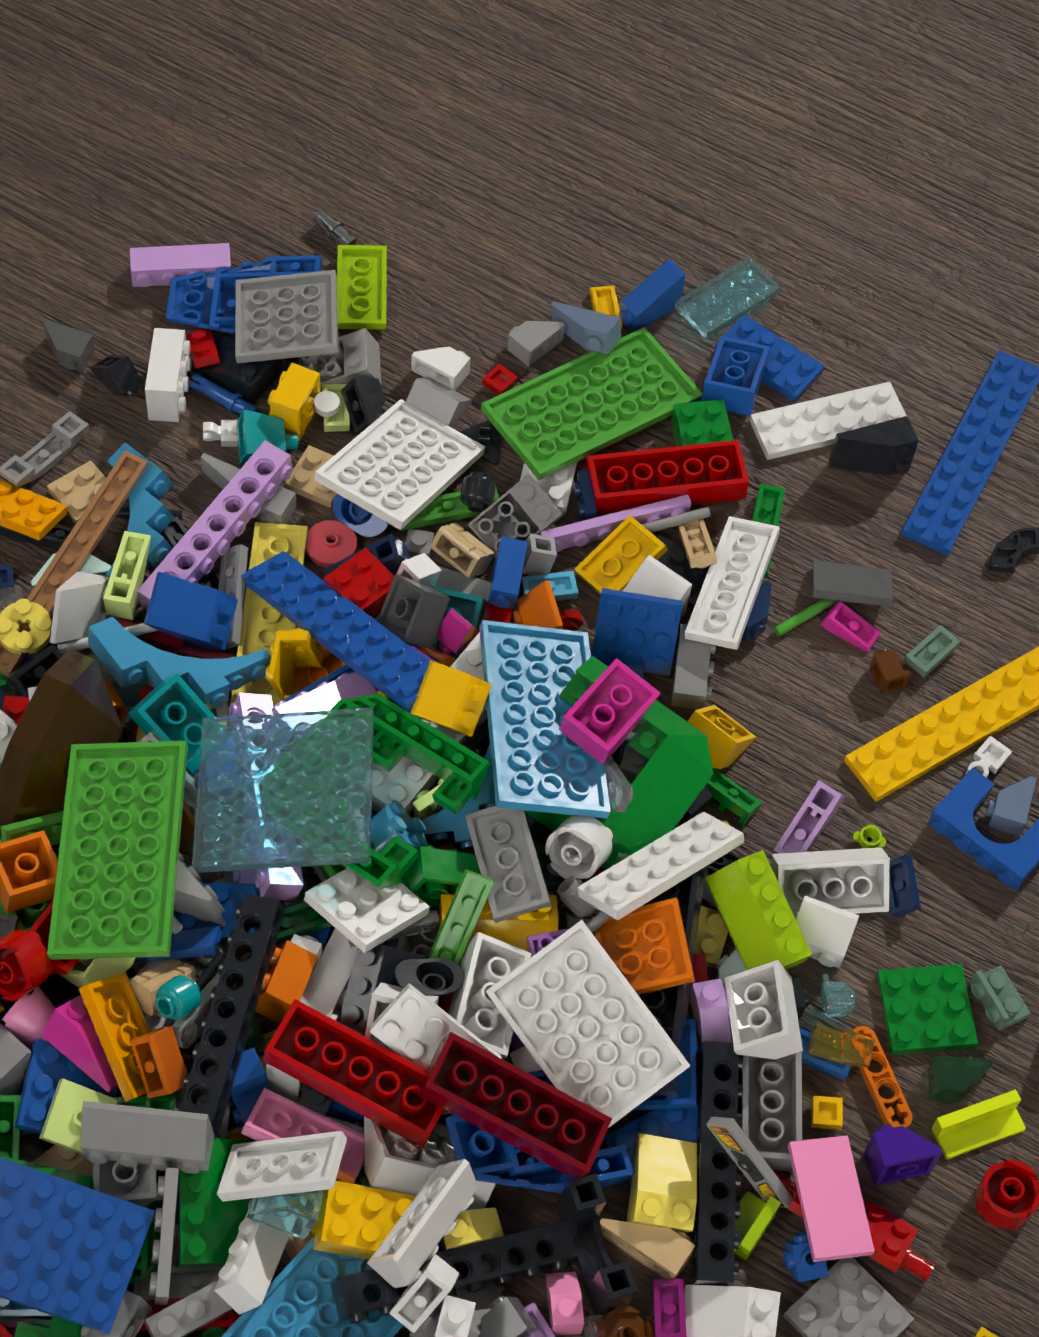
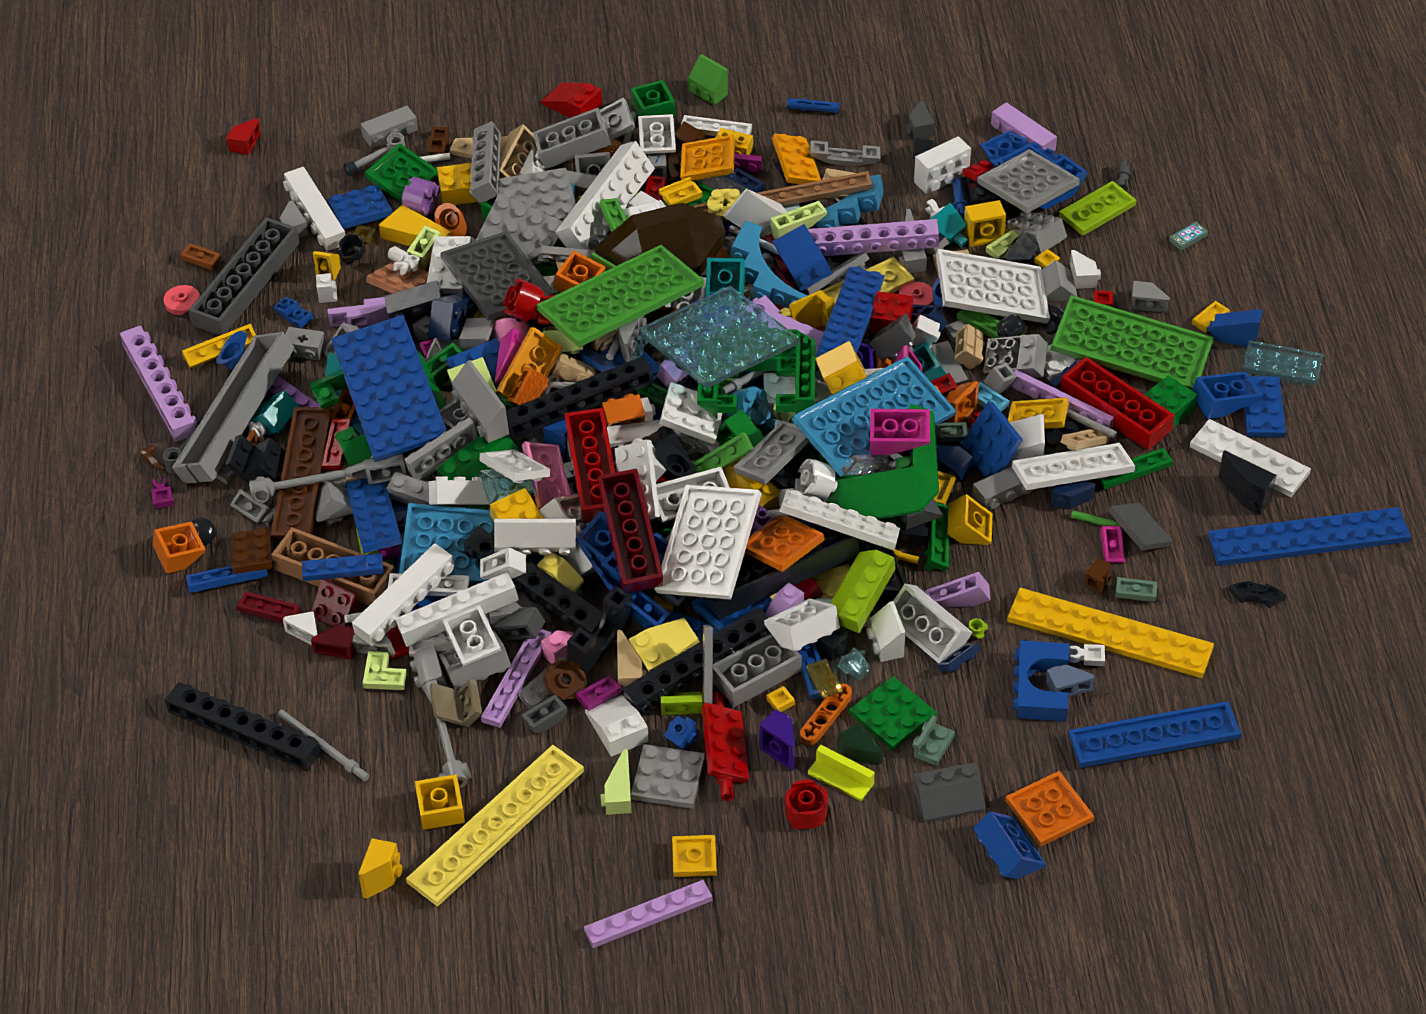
camera: 60 degrees right, 10 degrees down
(178, 998) = (566, 371): teal head -> none
(326, 403) = (999, 237): white tile -> none
(395, 386) = (1046, 258): none -> yellow plate
(475, 241) = (1188, 236): none -> sand green tile
(507, 572) = (968, 367): blue slope -> none
(588, 328) = (1181, 313): sand blue slope -> none
(830, 1198) = (720, 714): bright pink tile -> none

